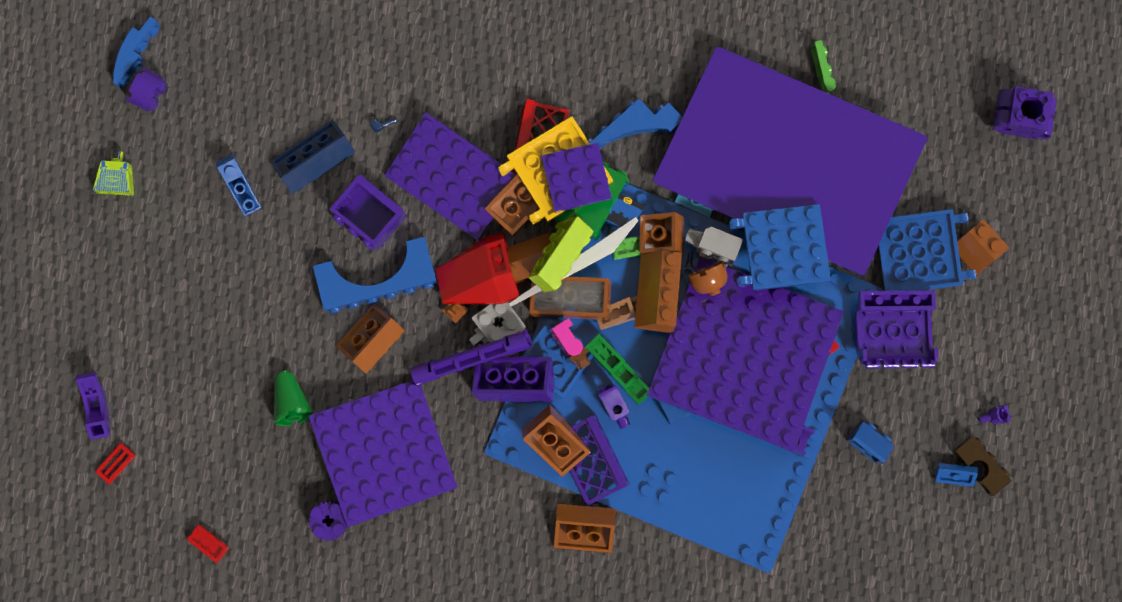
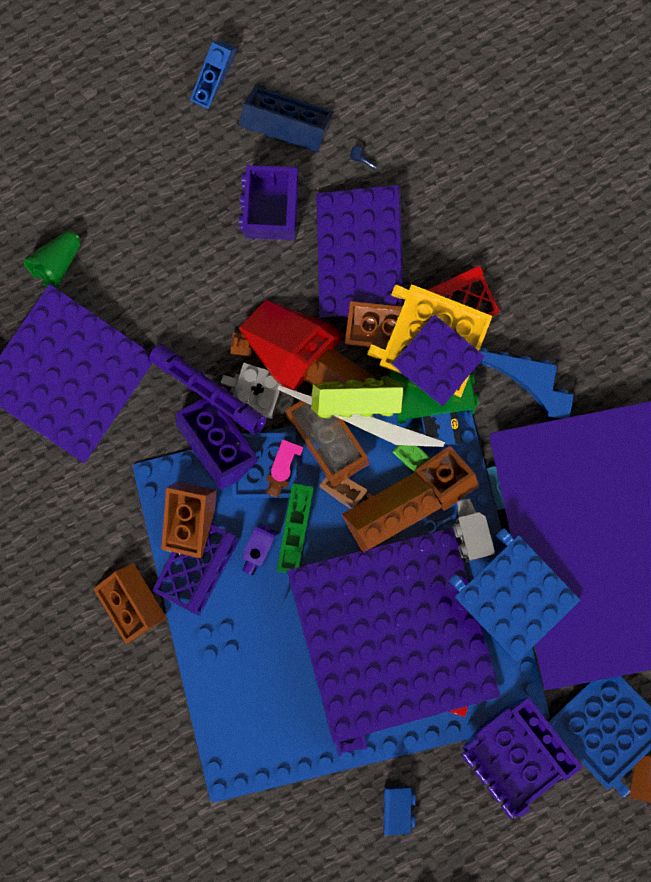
camera: 60 degrees right, 0 degrees up
(340, 293) = (249, 284): blue arch -> none
(370, 338) = (160, 288): dark orange slope -> none
(709, 279) = (436, 550): dark orange cylinder -> none

